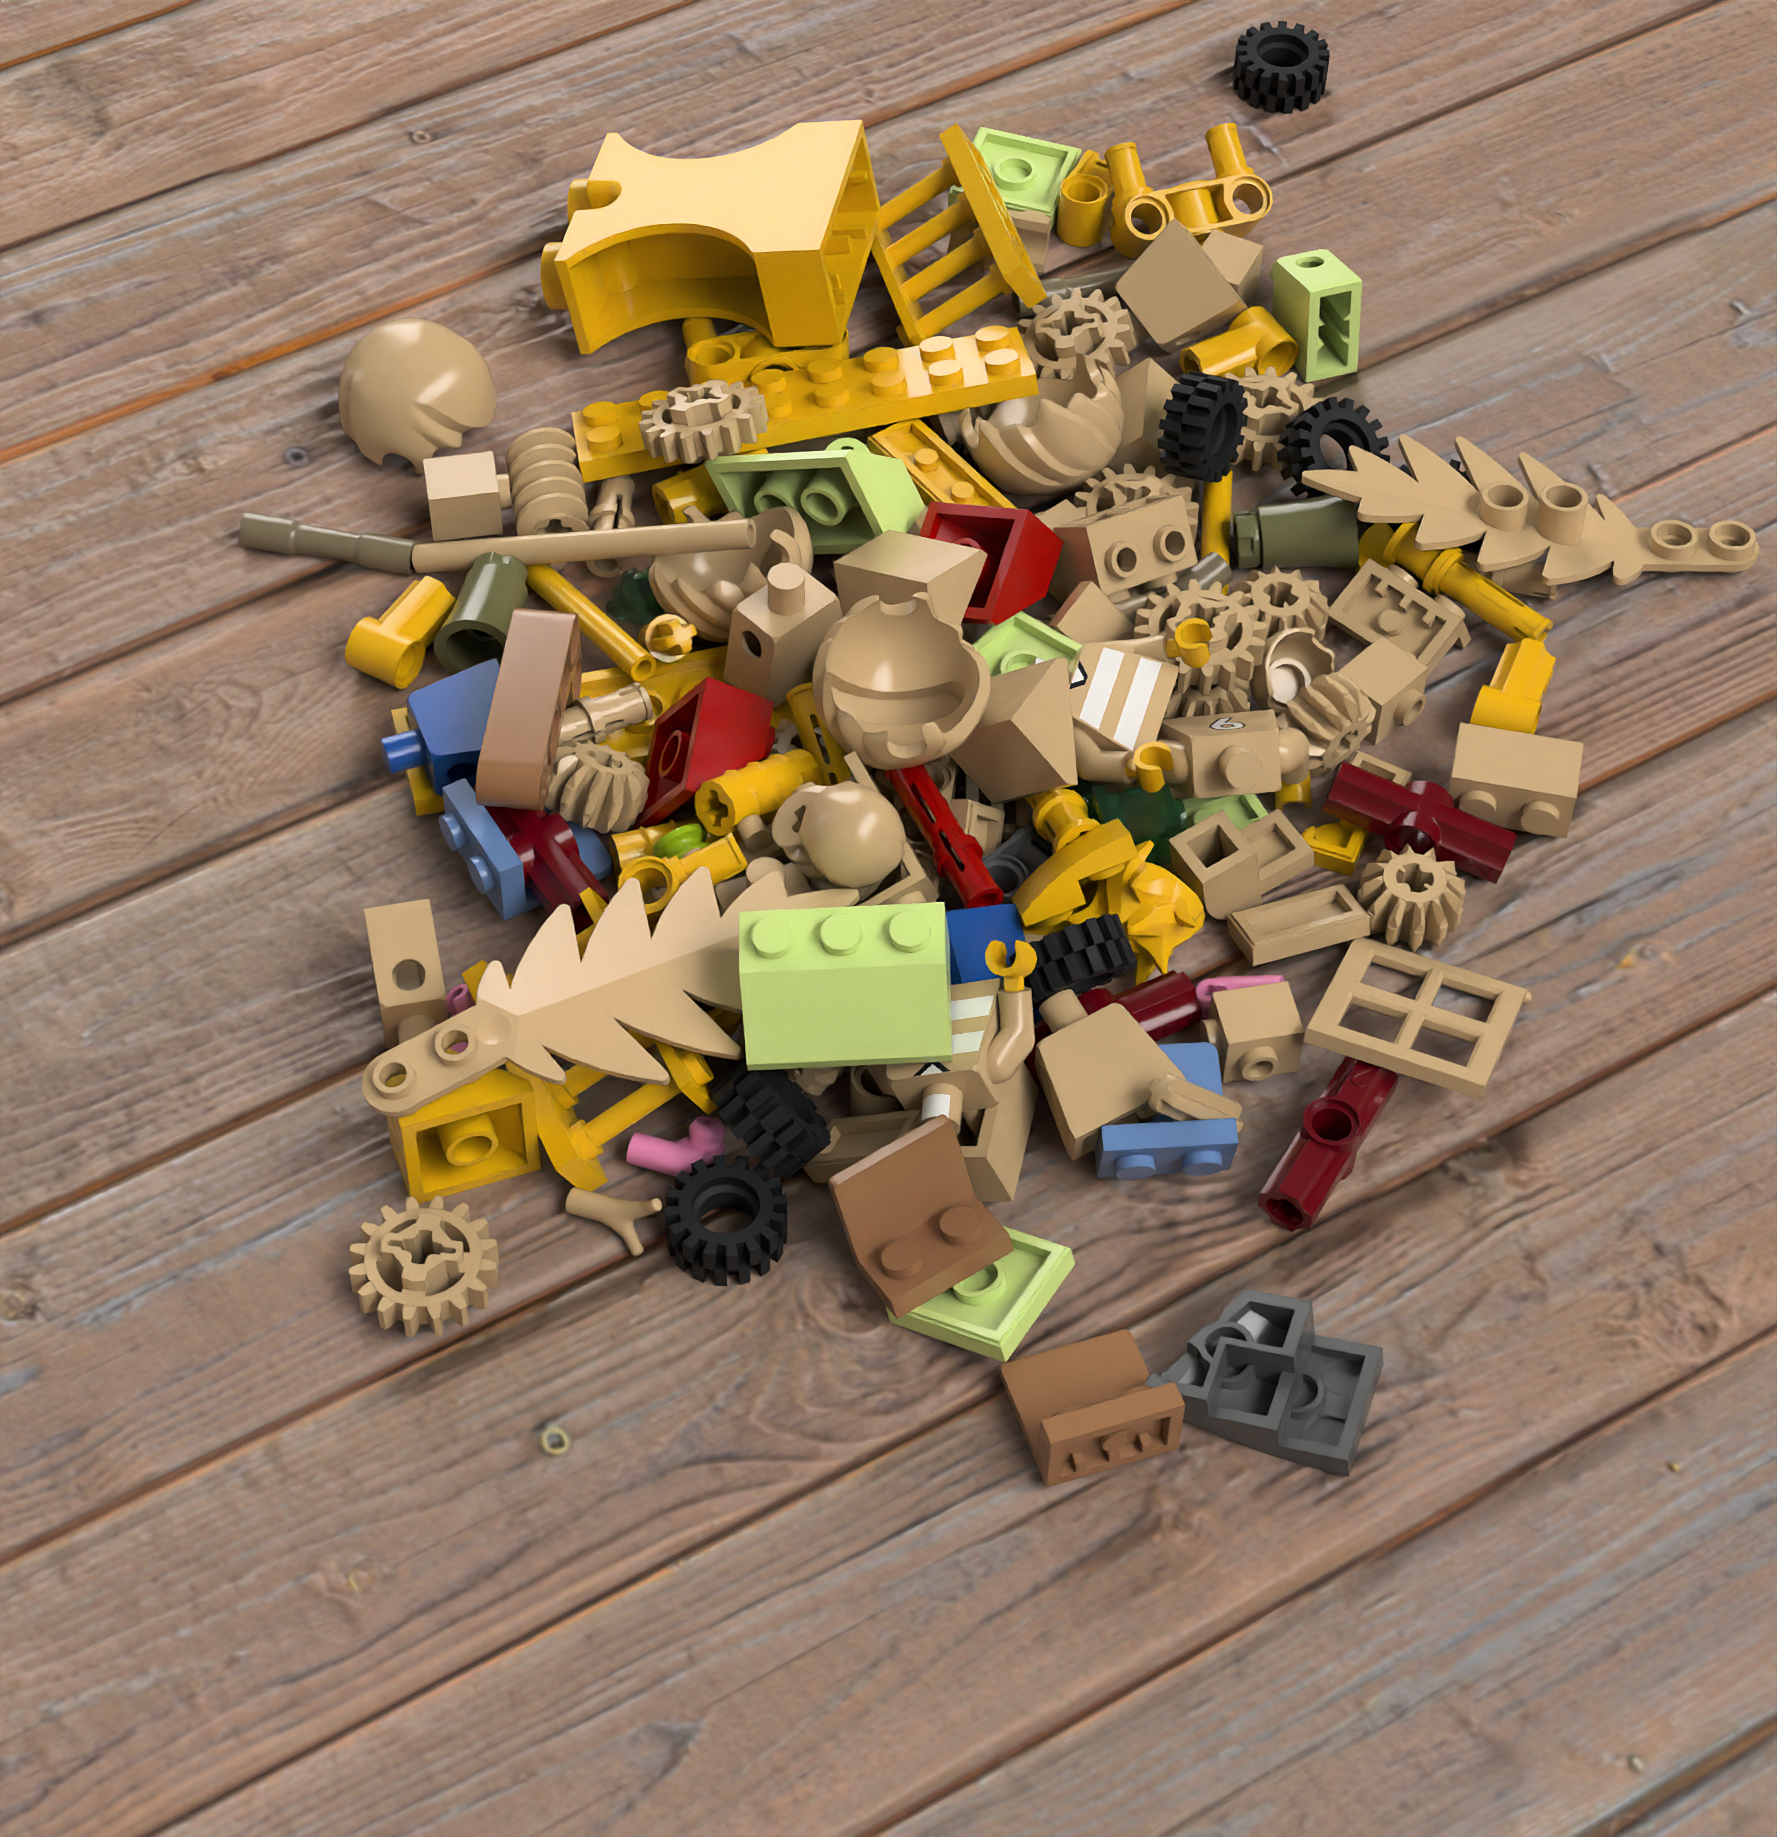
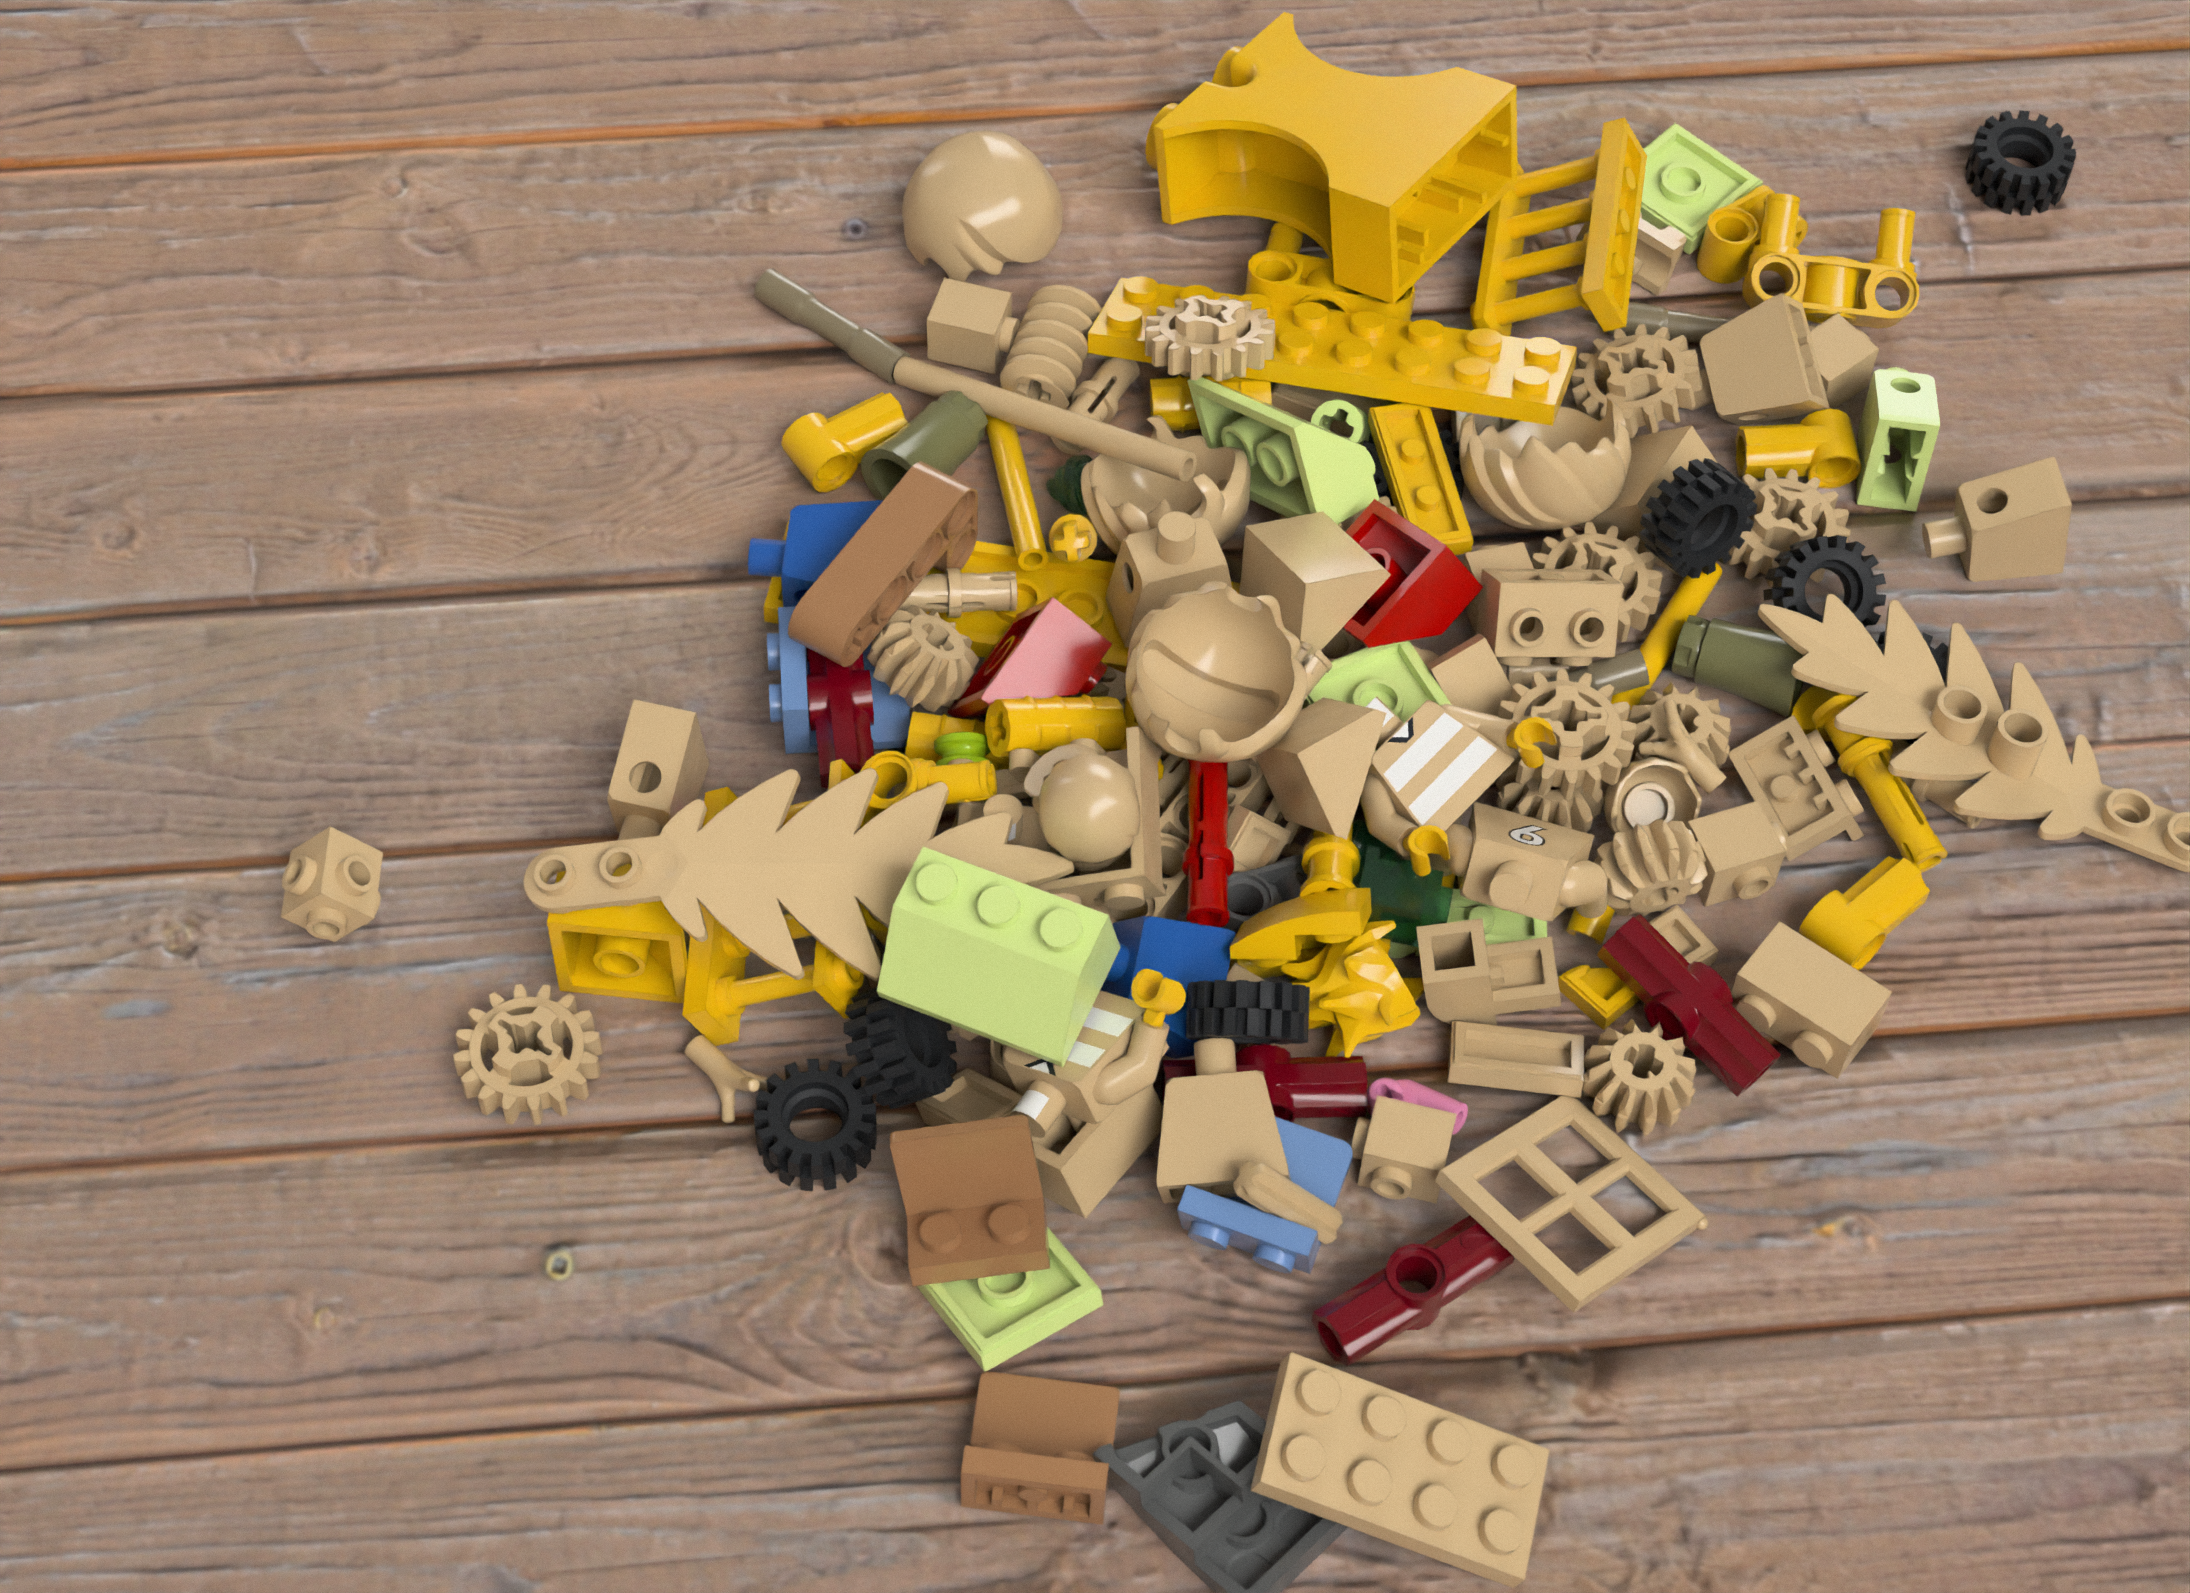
camera: 25 degrees right, 5 degrees up
(149, 1190) = (332, 885): none -> tan brick
(672, 1157) = (808, 1043): bright pink arm -> none
(1298, 615) = (1684, 751): none -> tan bar
(1411, 1289) = (1401, 1470): none -> tan plate
(1448, 347) = (2006, 524): none -> tan torso

